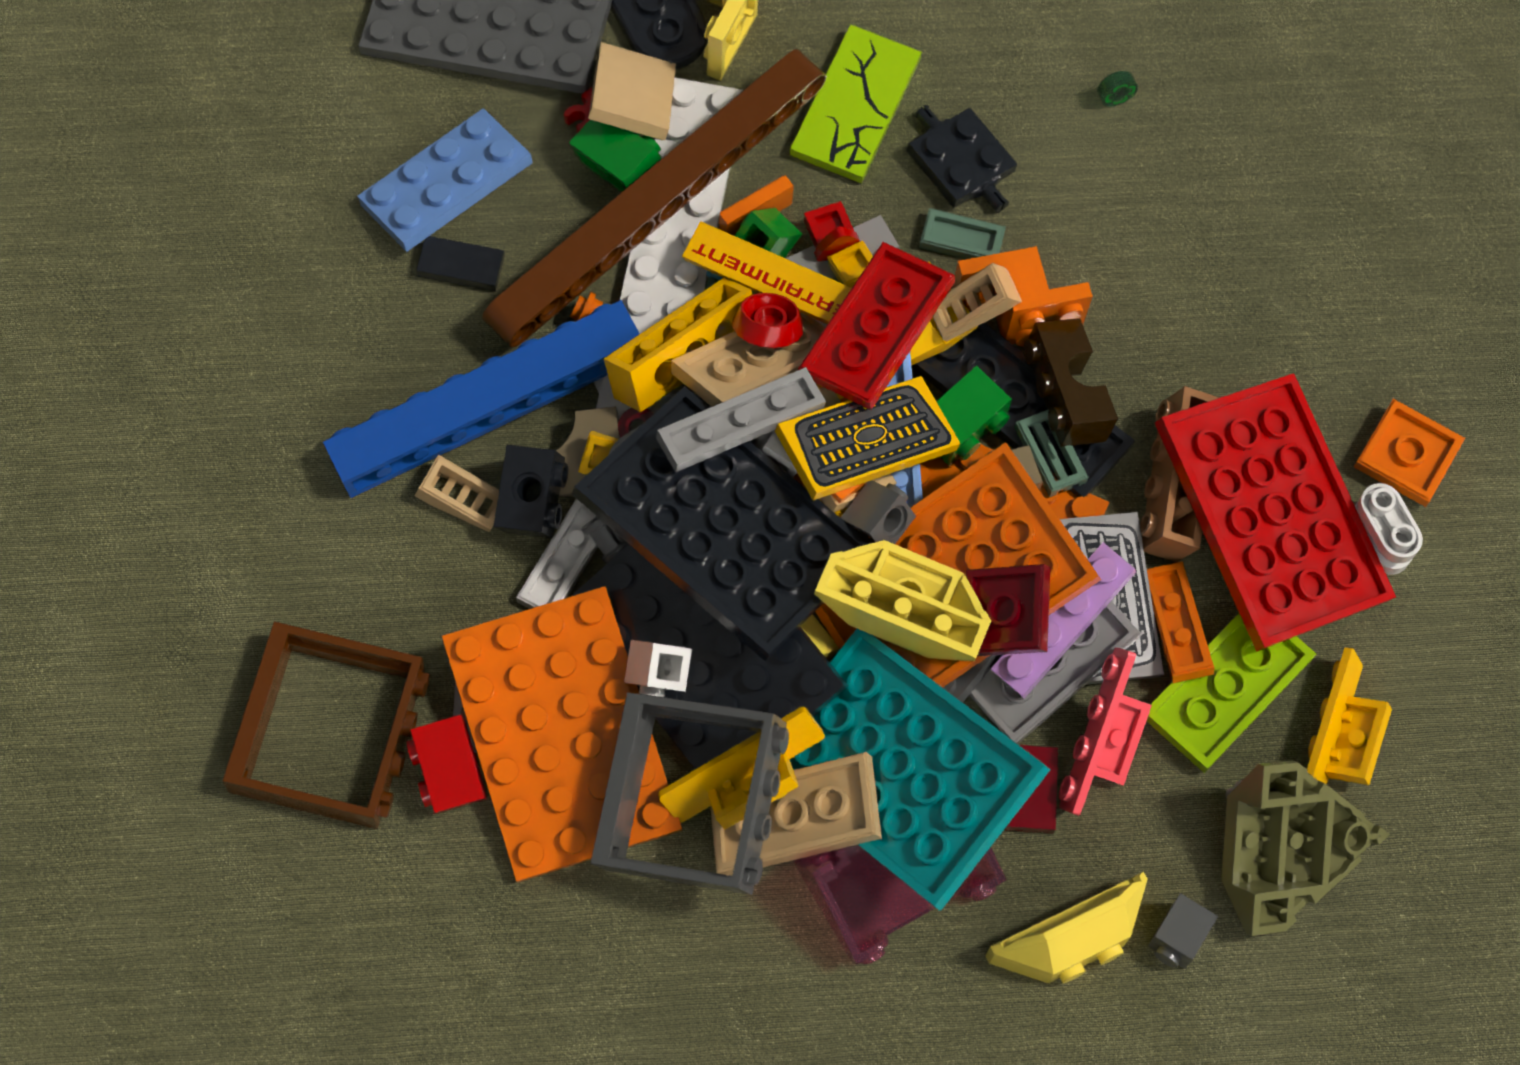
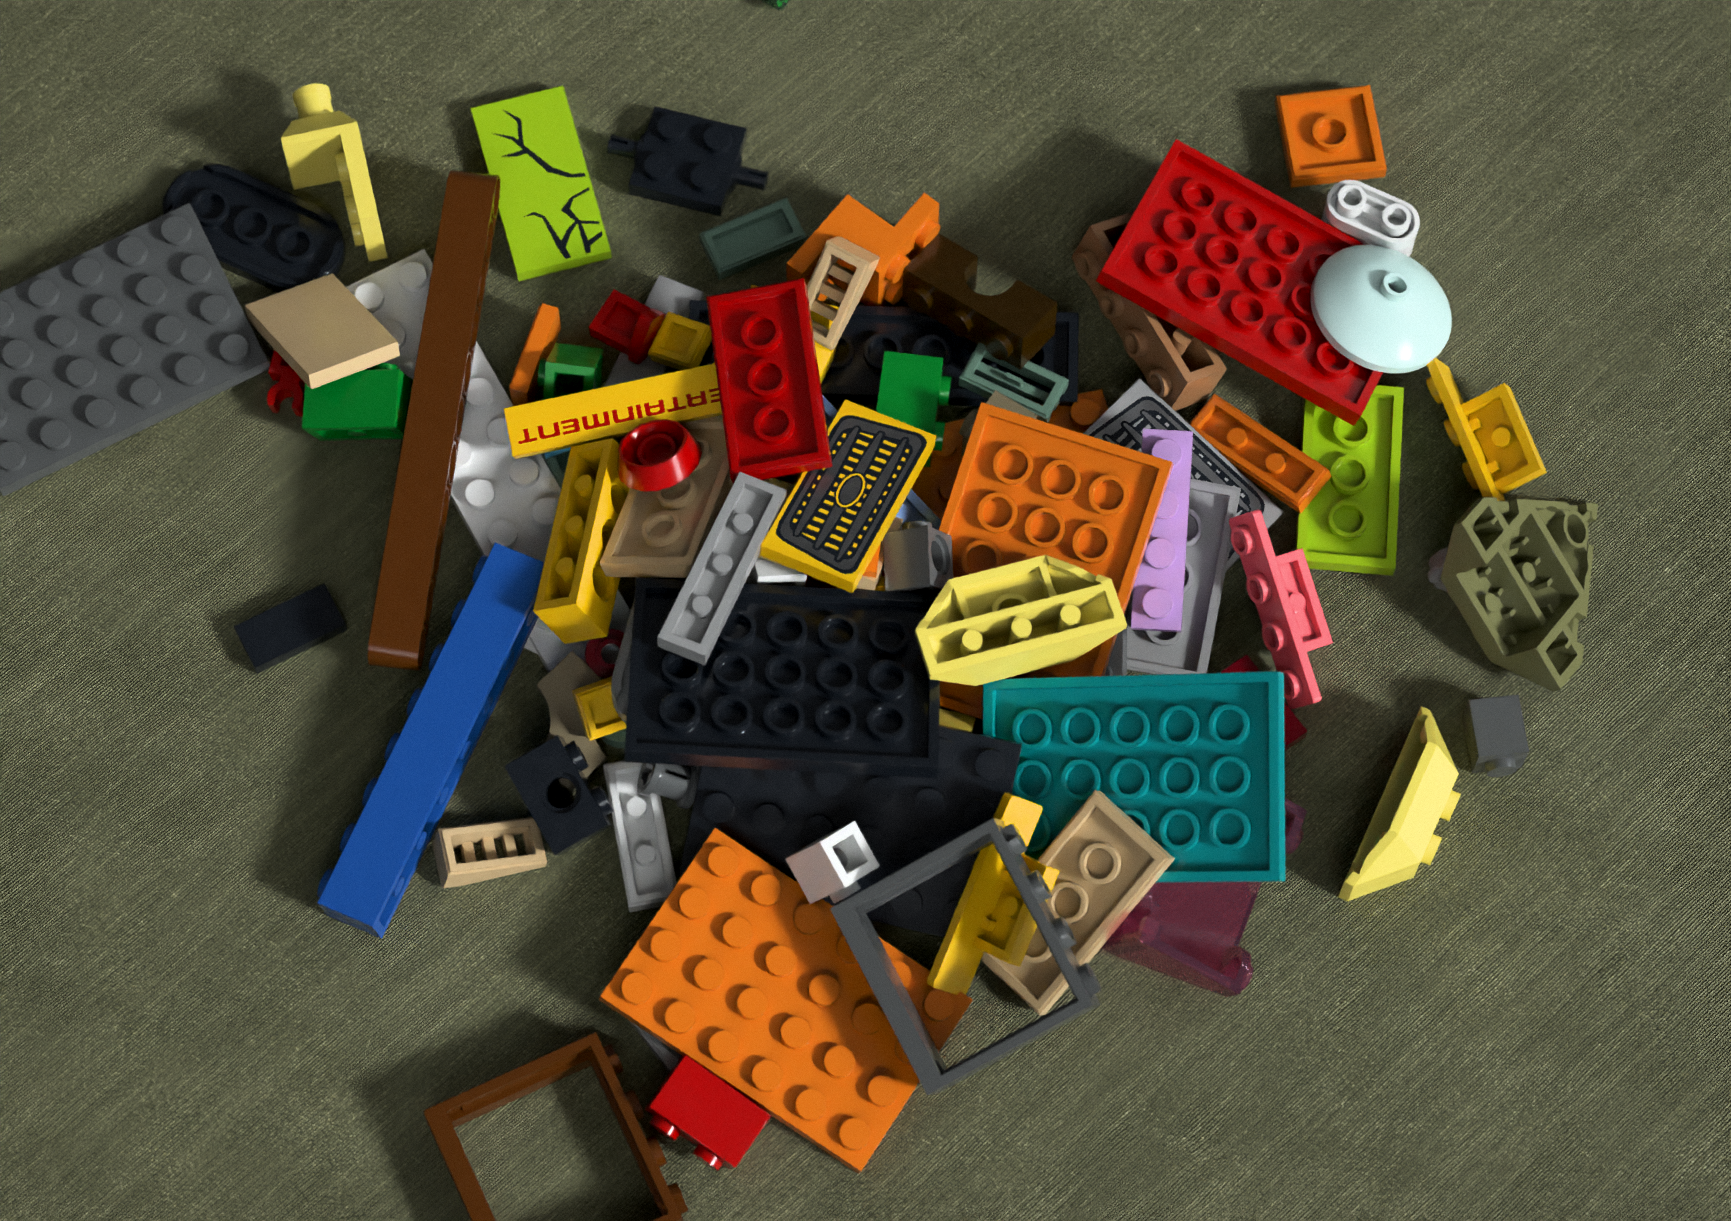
camera: 35 degrees left, 0 degrees up
(445, 179) = (204, 557): medium blue plate -> none
(585, 306) = (455, 580): orange plate -> none
(1017, 606) = (1120, 545): dark red plate -> none
(1329, 599) = (1381, 309): none -> light aqua dish

